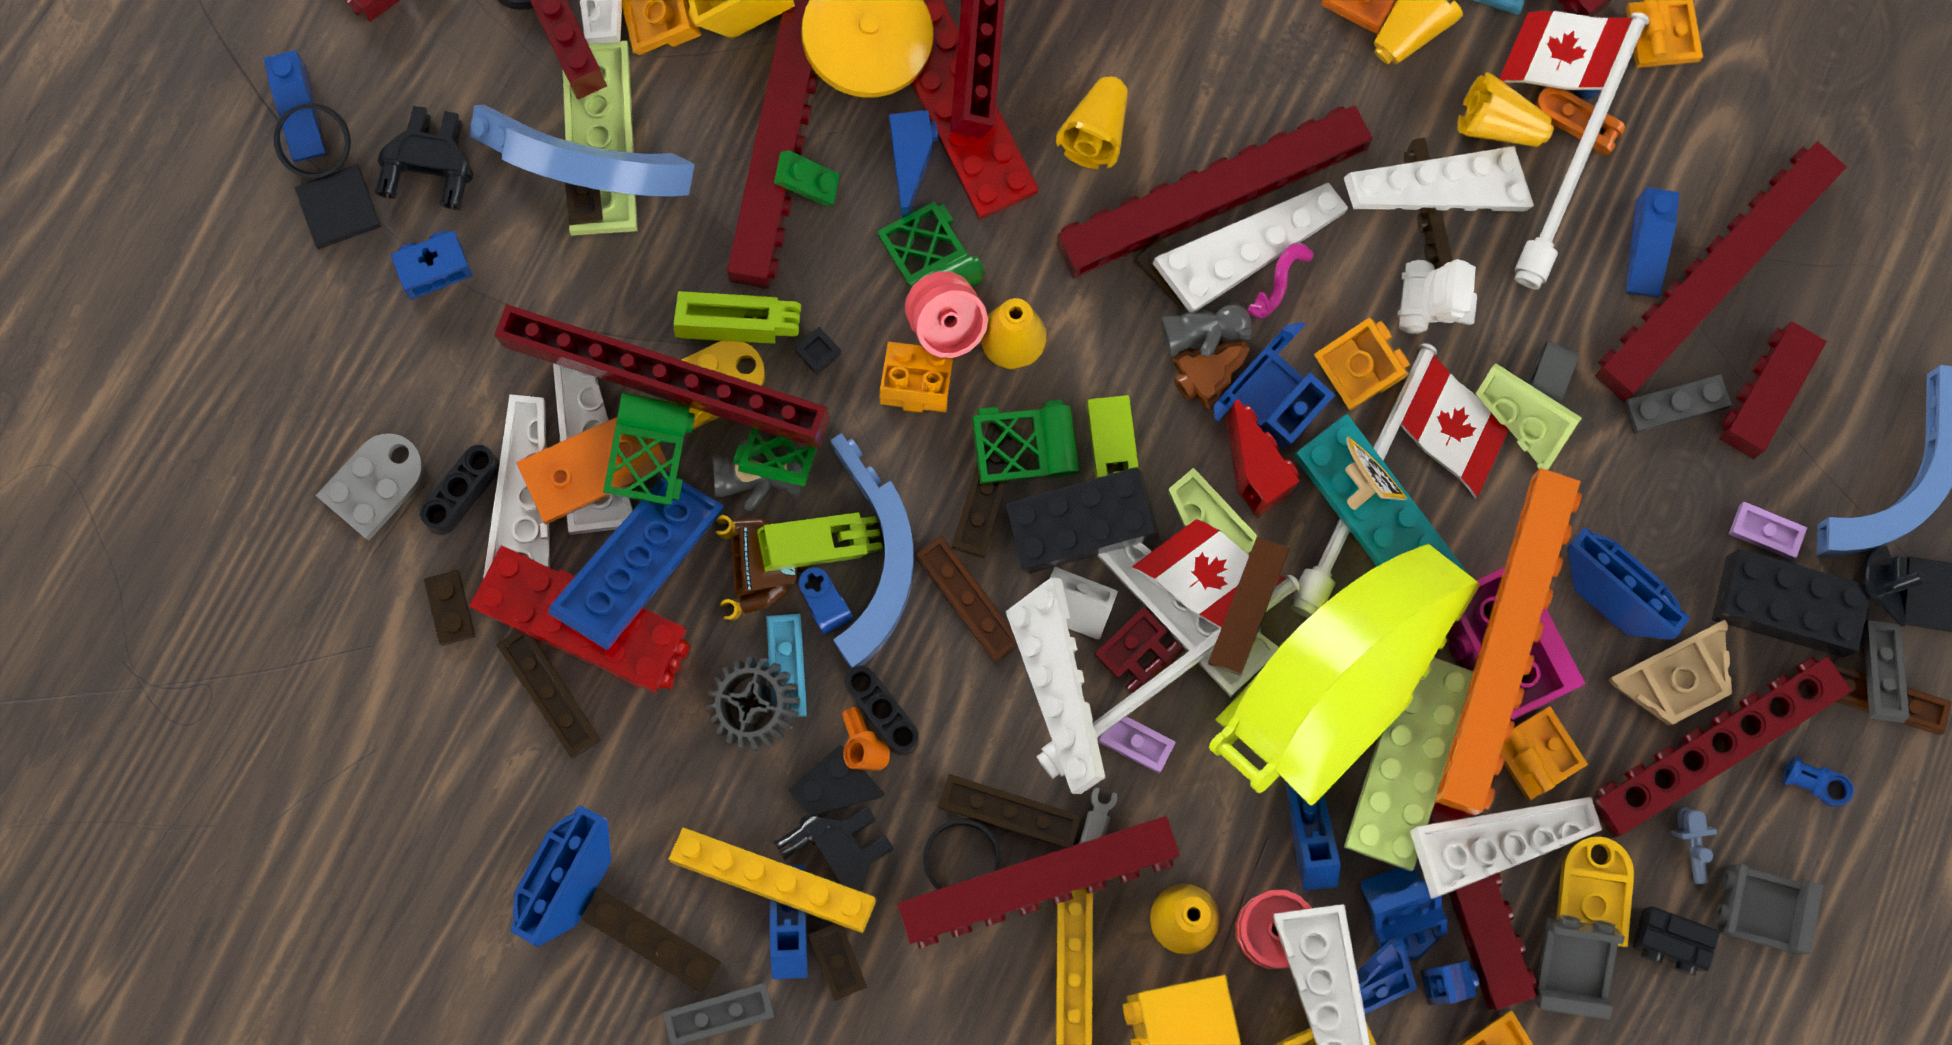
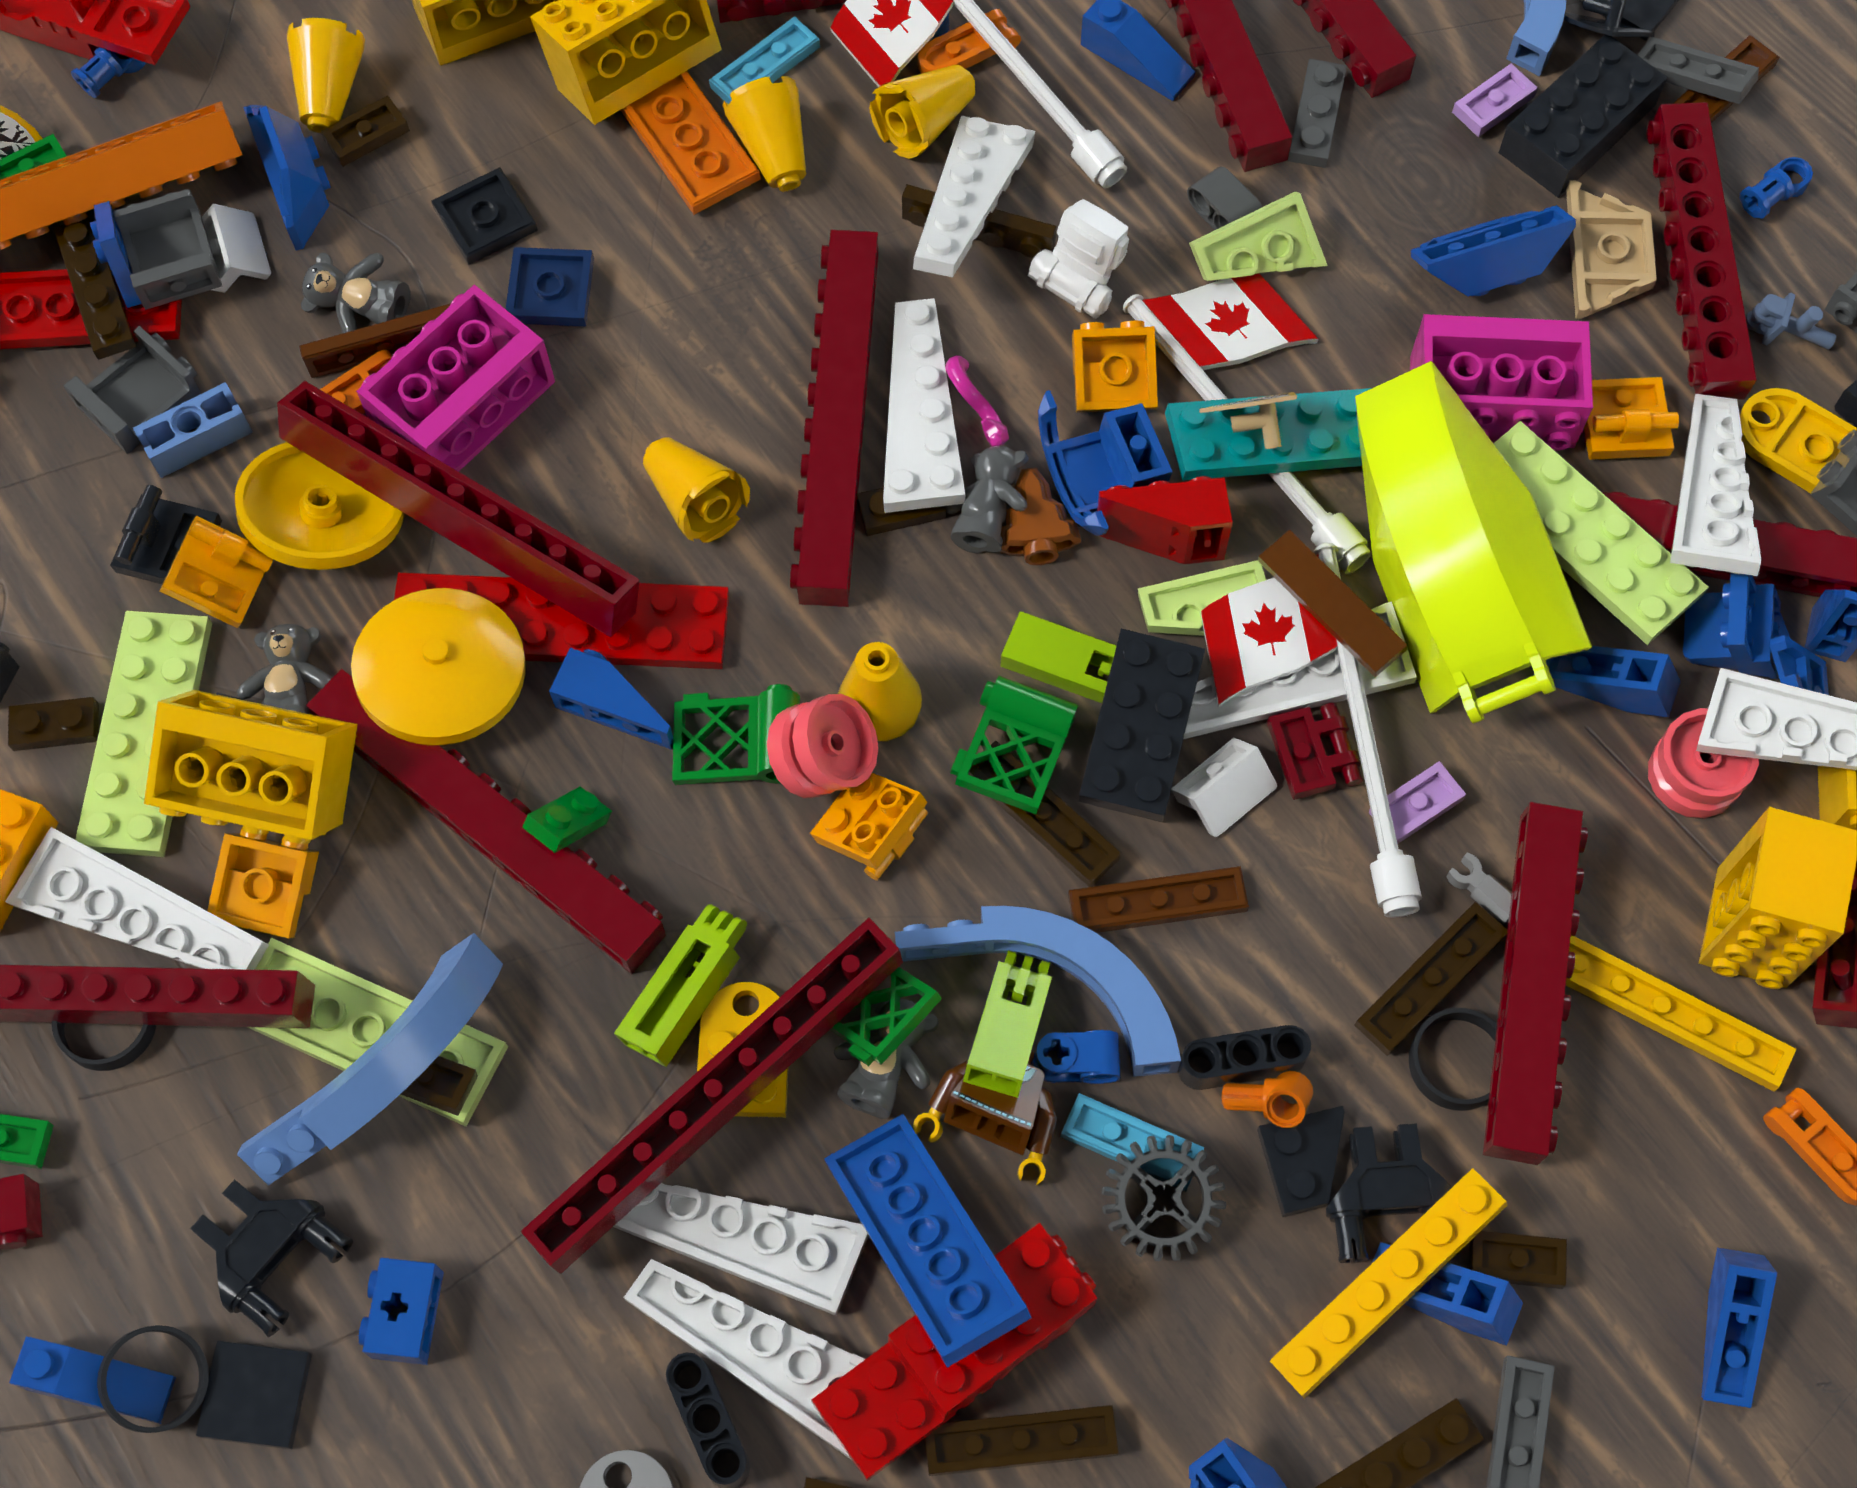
camera: 55 degrees left, 10 degrees down
(575, 470) = (771, 1240): orange plate -> none
(653, 421) = (764, 1132): green piece -> none
(818, 351) = (776, 914): black plate -> none
(1048, 655) = (1285, 837): white wing -> none
(1171, 923) = (1644, 851): yellow cone -> none
(1508, 642) = (1515, 366): orange brick -> none

